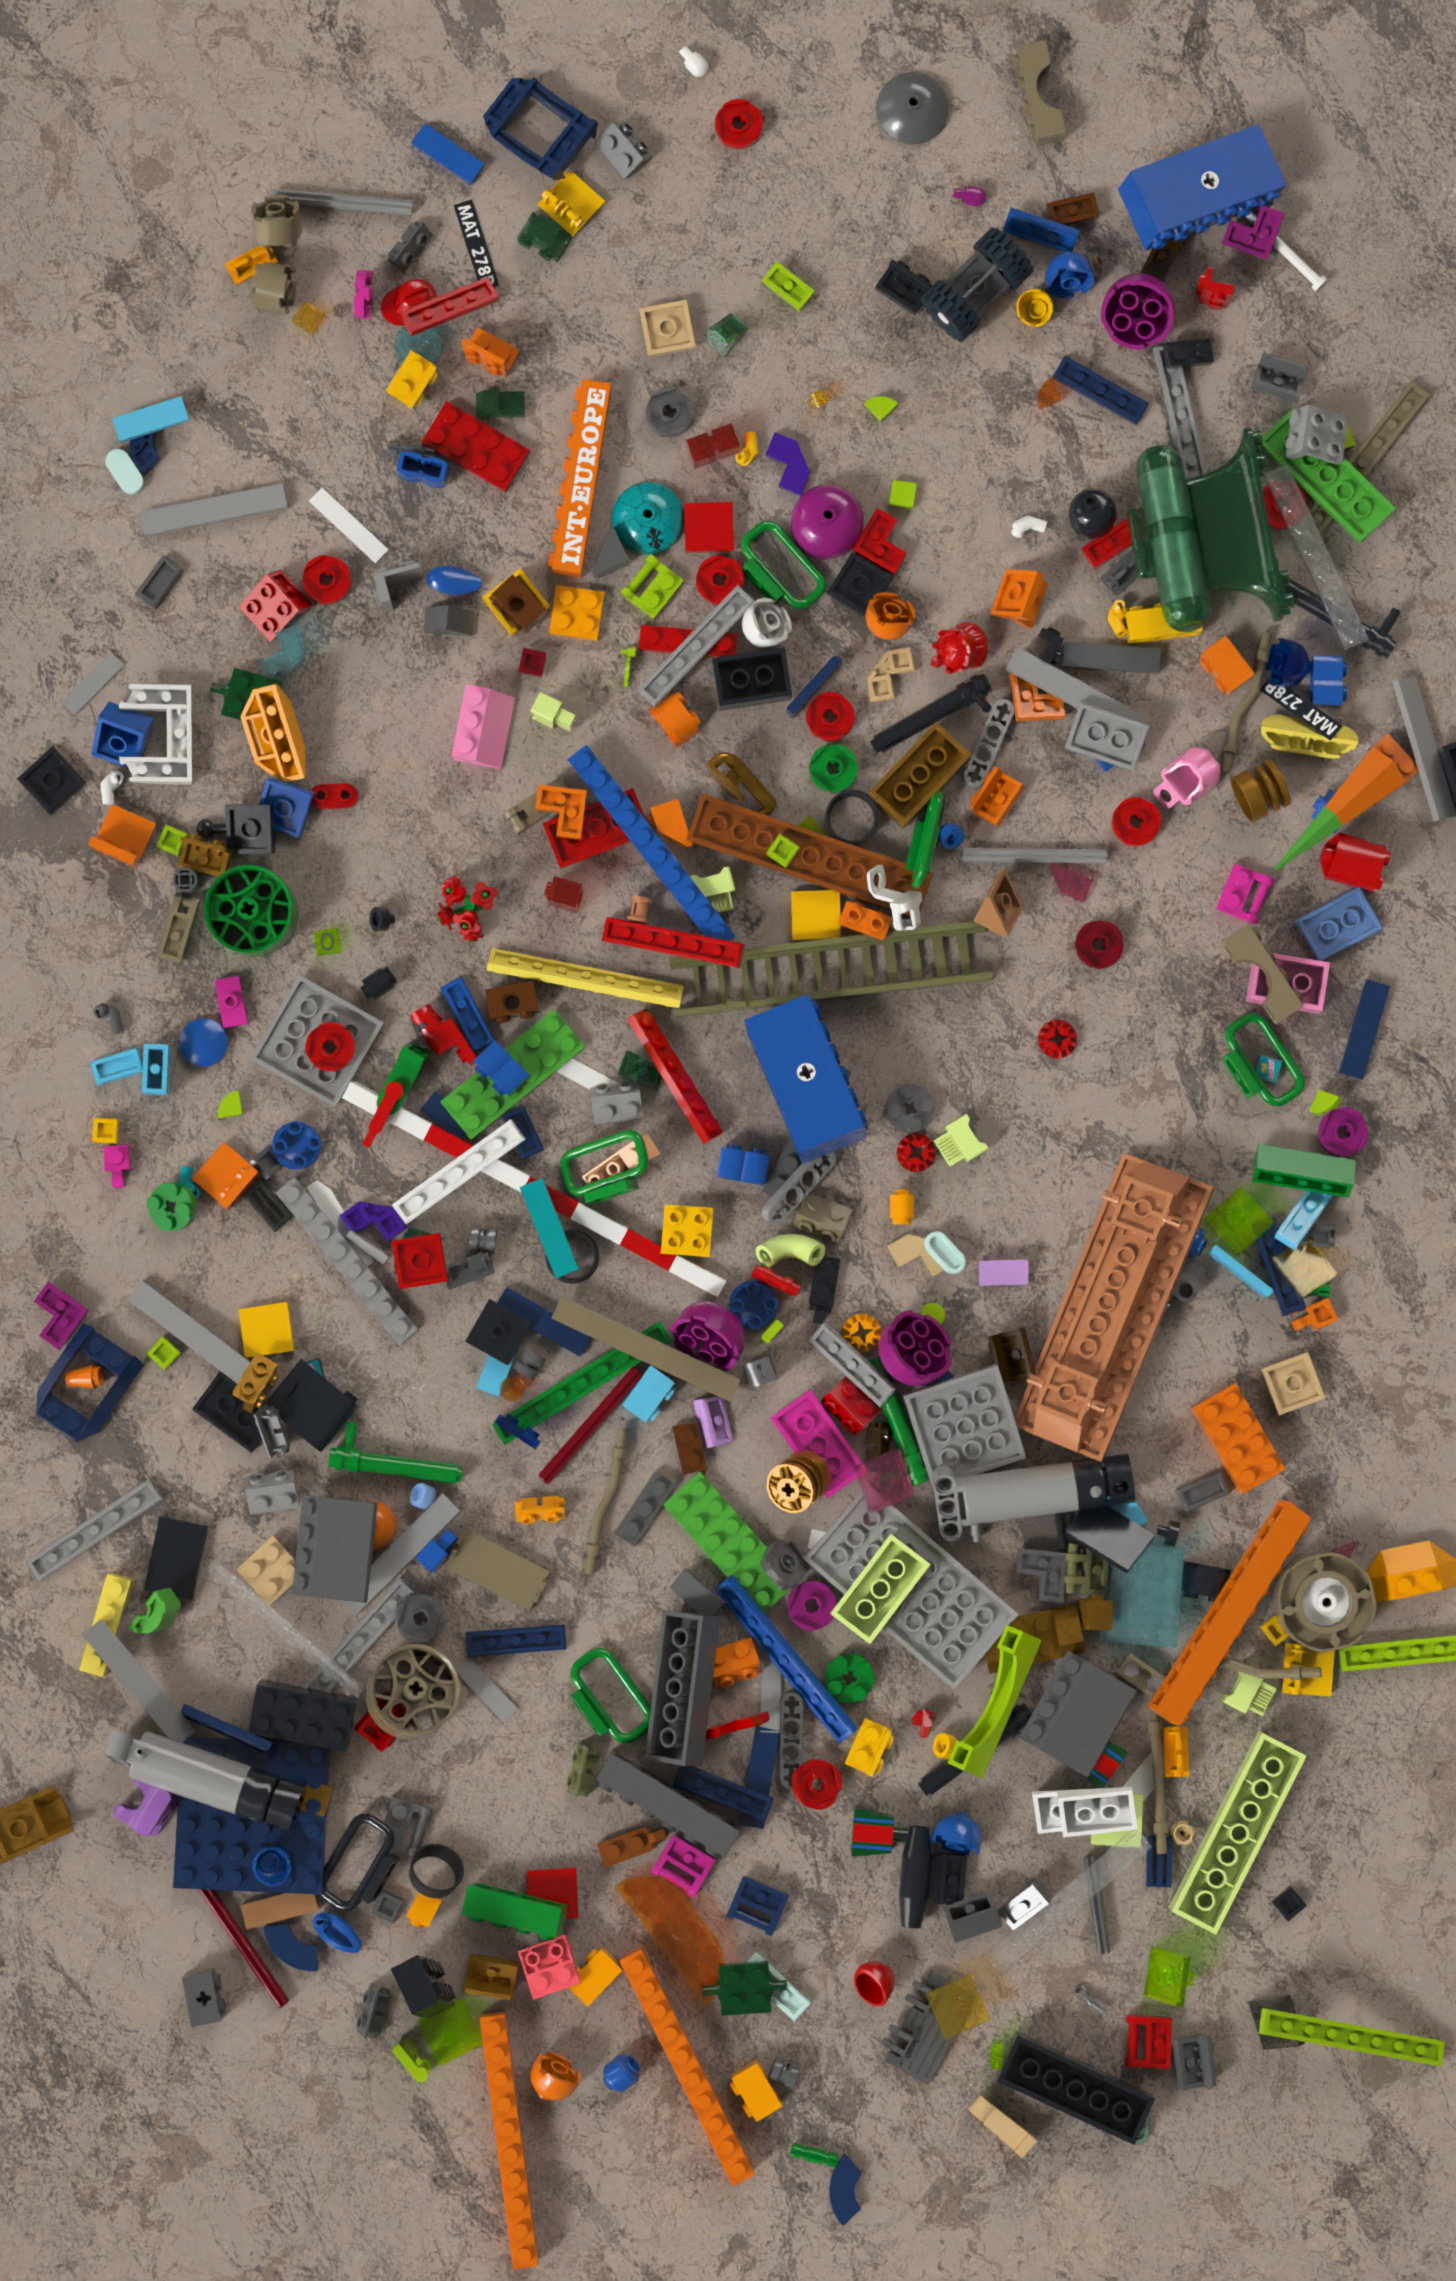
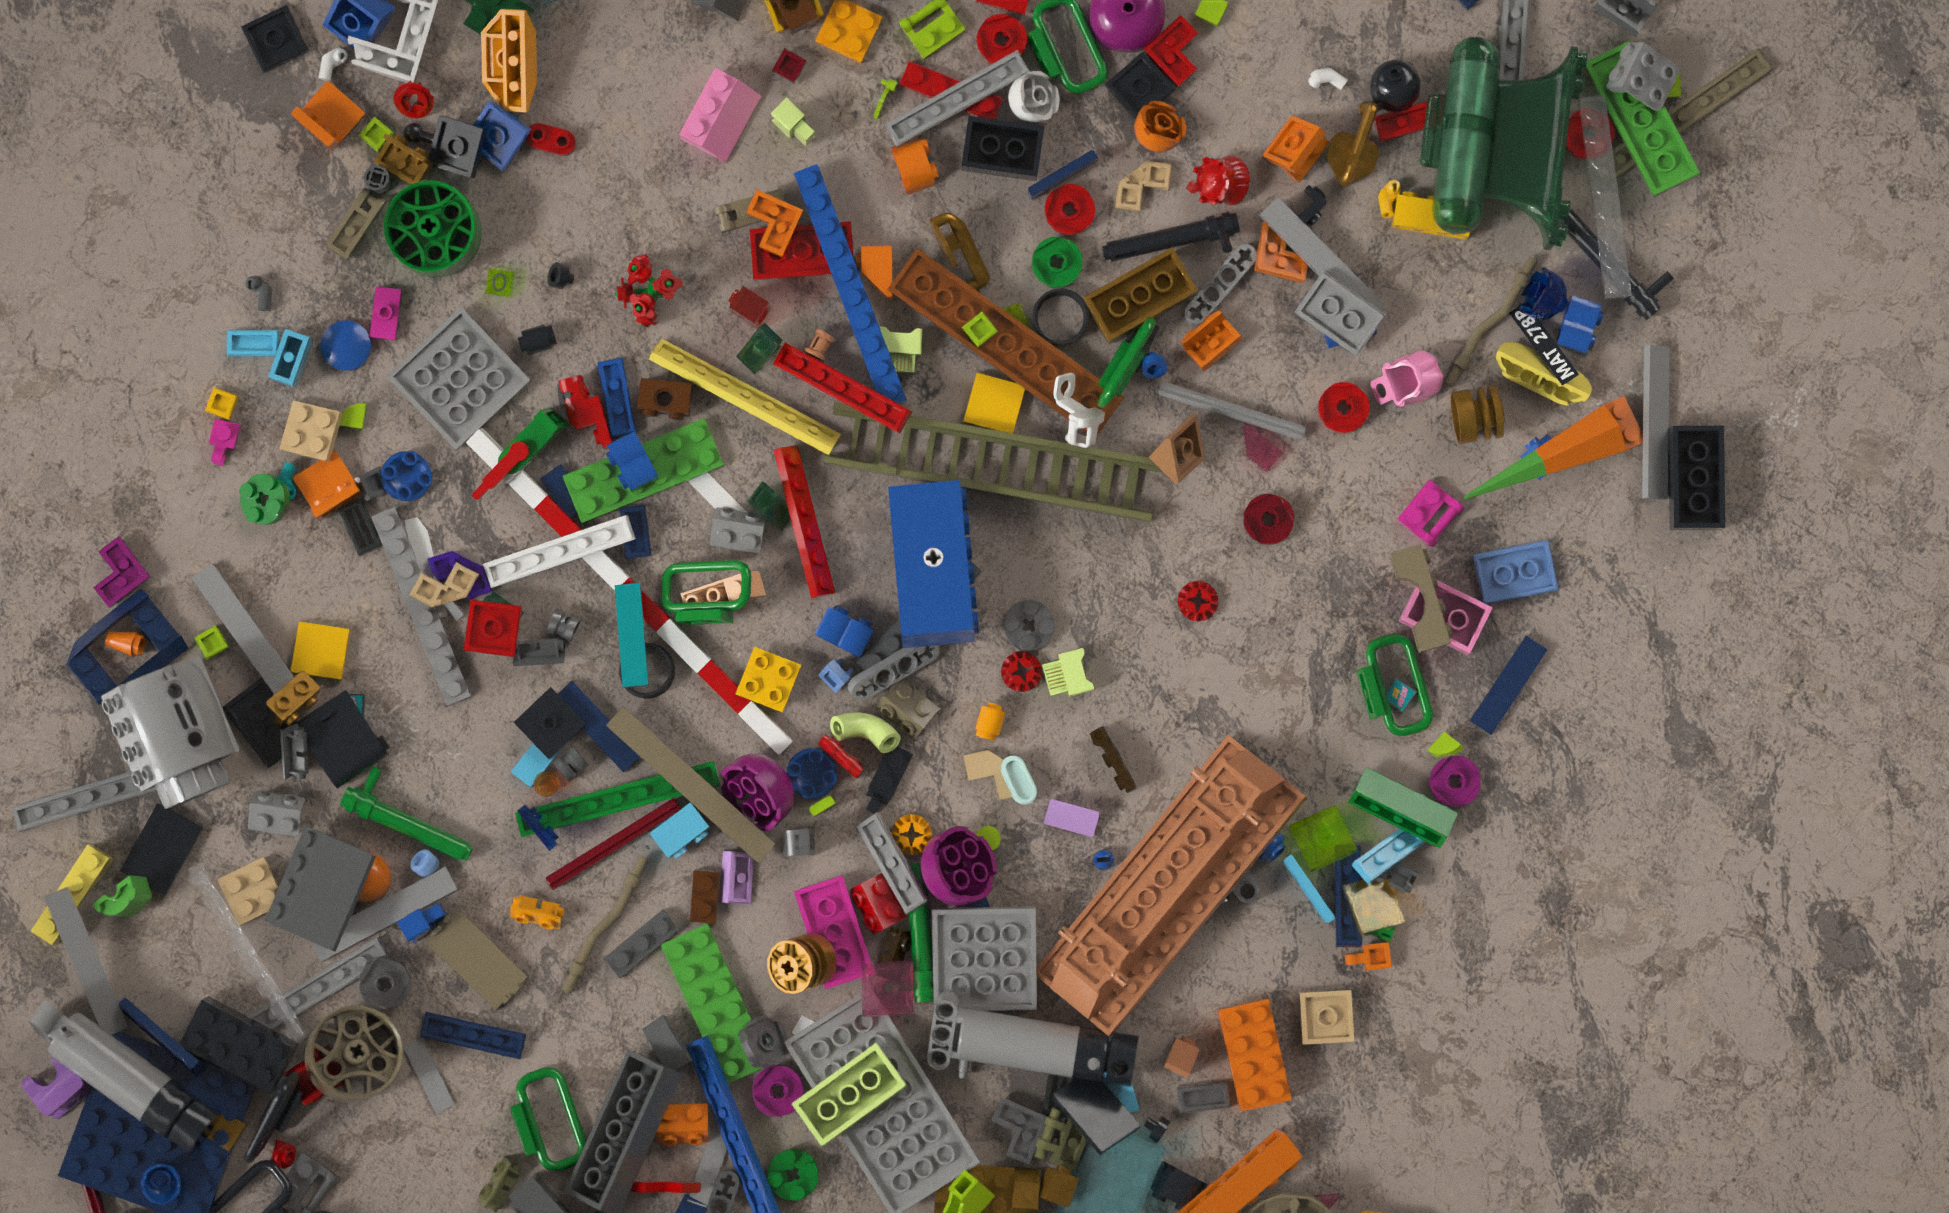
camera: 20 degrees right, 0 degrees up
(154, 1446) = (172, 731): none -> light grey piece
(196, 1131) = (311, 431): none -> tan plate
(206, 801) = (403, 96): none -> red gear
(342, 1039) = (464, 374): red plate -> none
(357, 1245) = (455, 588): none -> tan tile
(357, 1768) = (276, 1113): none -> black bar
(375, 1803) = (283, 1154): none -> red plate
(585, 929) = (759, 348): none -> clear green slope
(747, 1208) = (834, 675): none -> medium blue tile
(864, 920) = (1041, 424): orange bracket -> none
(1012, 1355) = (1054, 902): dark brown bracket -> none
(1023, 1206) = (1112, 758): none -> dark brown hinge
(1046, 1307) = (1103, 865): none -> blue hinge
(1074, 588) = (1353, 155): none -> pearl gold piece
(1111, 657) = (1369, 236): dark grey tile -> none
(1121, 574) = (1404, 155): dark grey hinge -> none
(1172, 1460) = (1181, 1056): none -> nougat slope
(1226, 665) = (1482, 279): orange brick -> none
(1354, 861) = (1548, 513): red cylinder -> none

